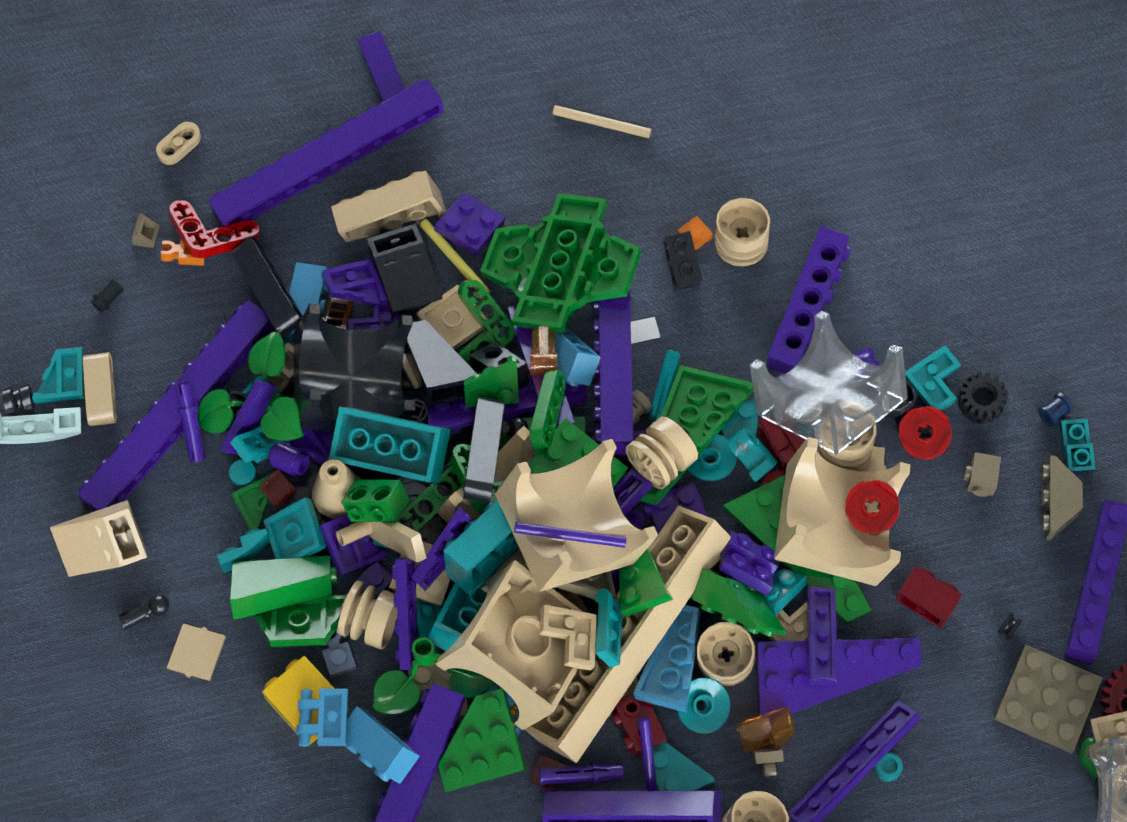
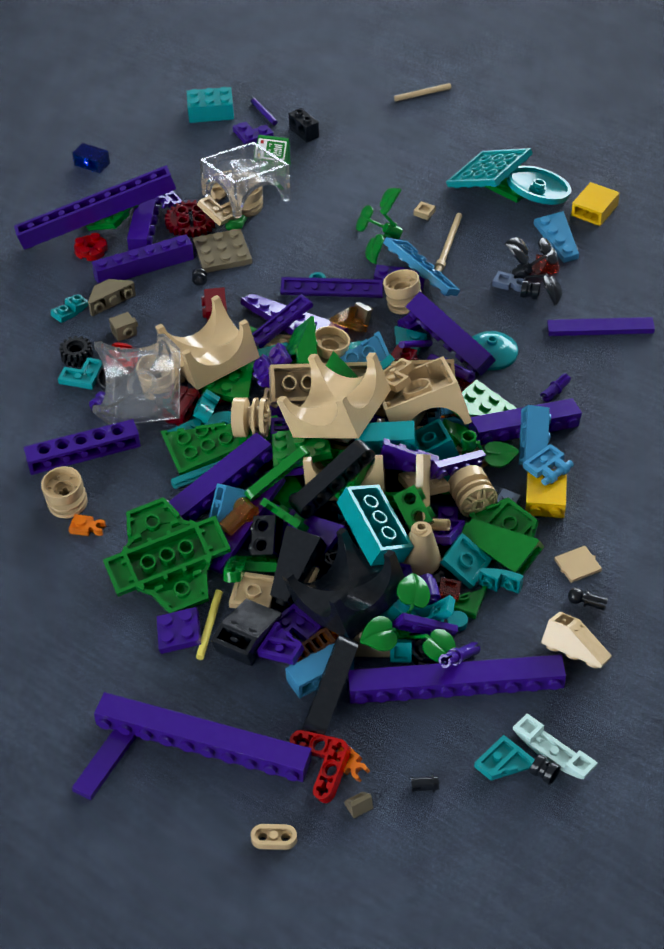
camera: 130 degrees left, 20 degrees down
(99, 389) = (489, 730): tan beam -> none
(389, 207) = (209, 671): tan wedge -> none
(569, 534) = (350, 386): dark purple bar -> none
(601, 121) = (38, 620): tan bar -> none
(682, 260) = (109, 507): black brick -> none
(873, 522) = (197, 339): red plate -> none
(1062, 403) = (56, 323): dark blue bush -> none

